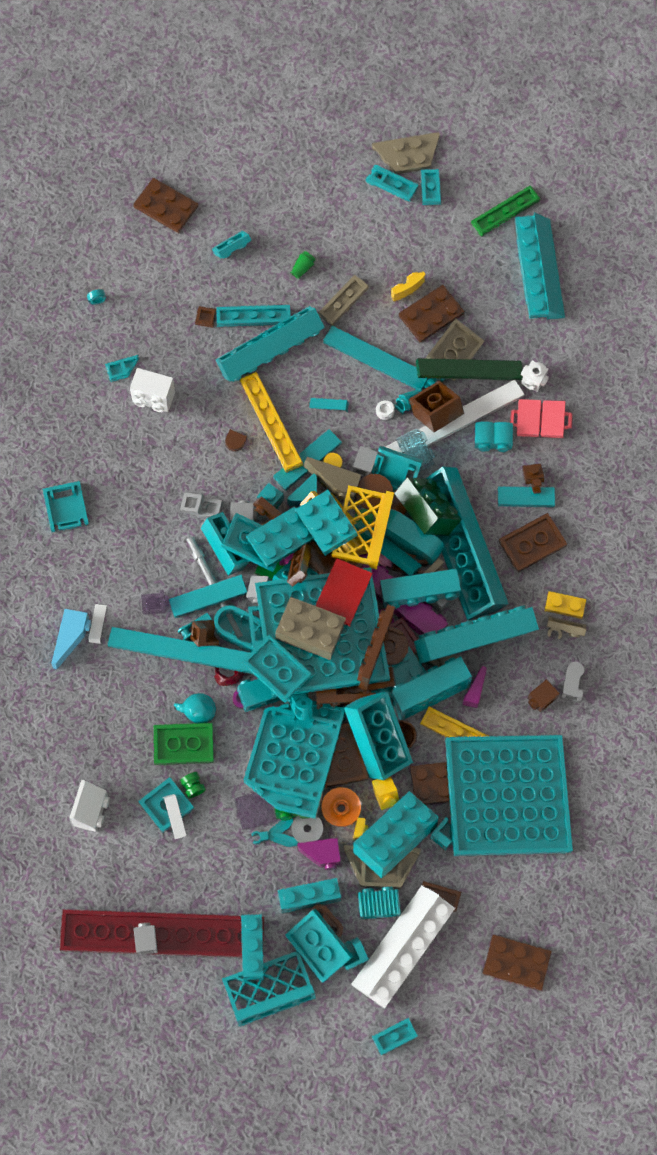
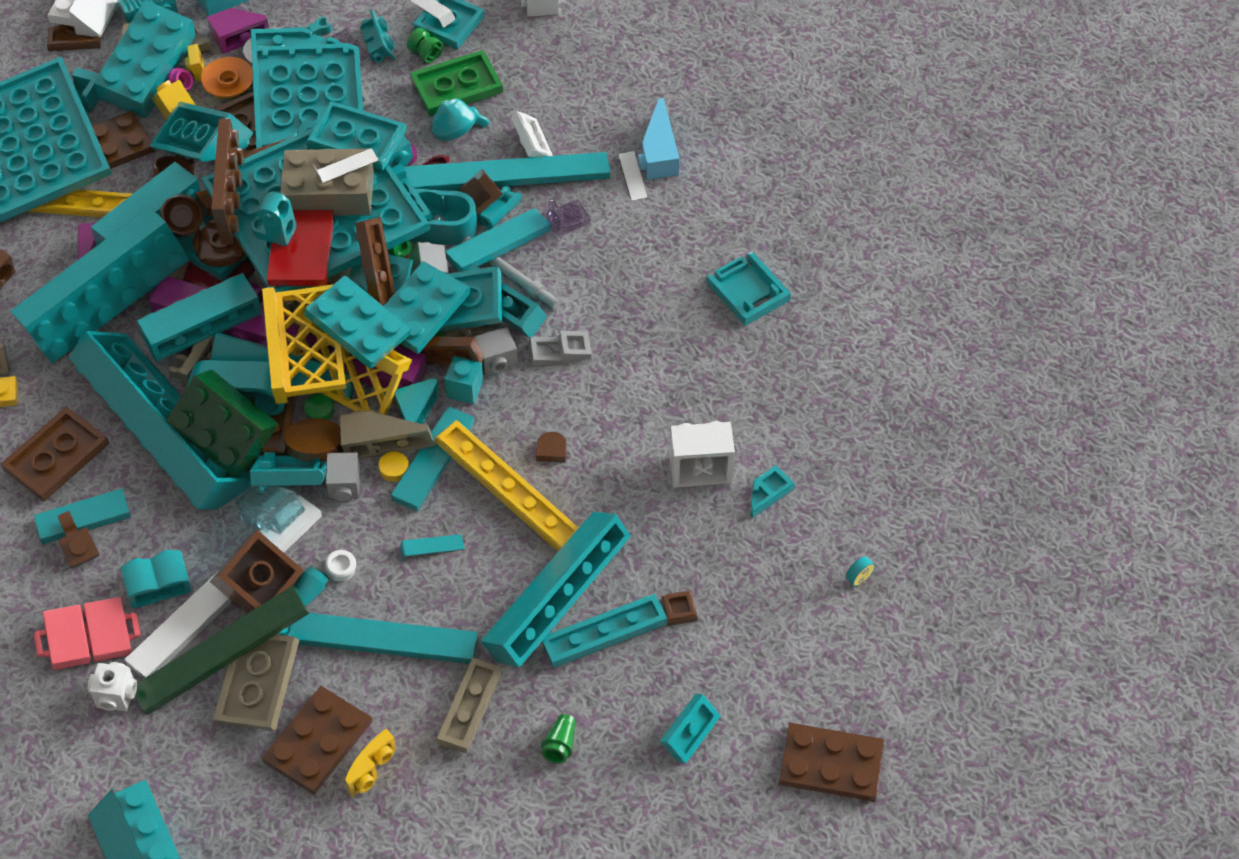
camera: 160 degrees right, 15 degrees down
(151, 674) = (531, 135): none -> white plate
(222, 799) = (378, 41): none -> teal hinge
(296, 618) = (346, 165): none -> white piece
(354, 600) = (276, 217): none -> teal leg
(373, 816) = (182, 75): none -> dark pink plate
(411, 662) = (182, 215): none -> reddish brown hair

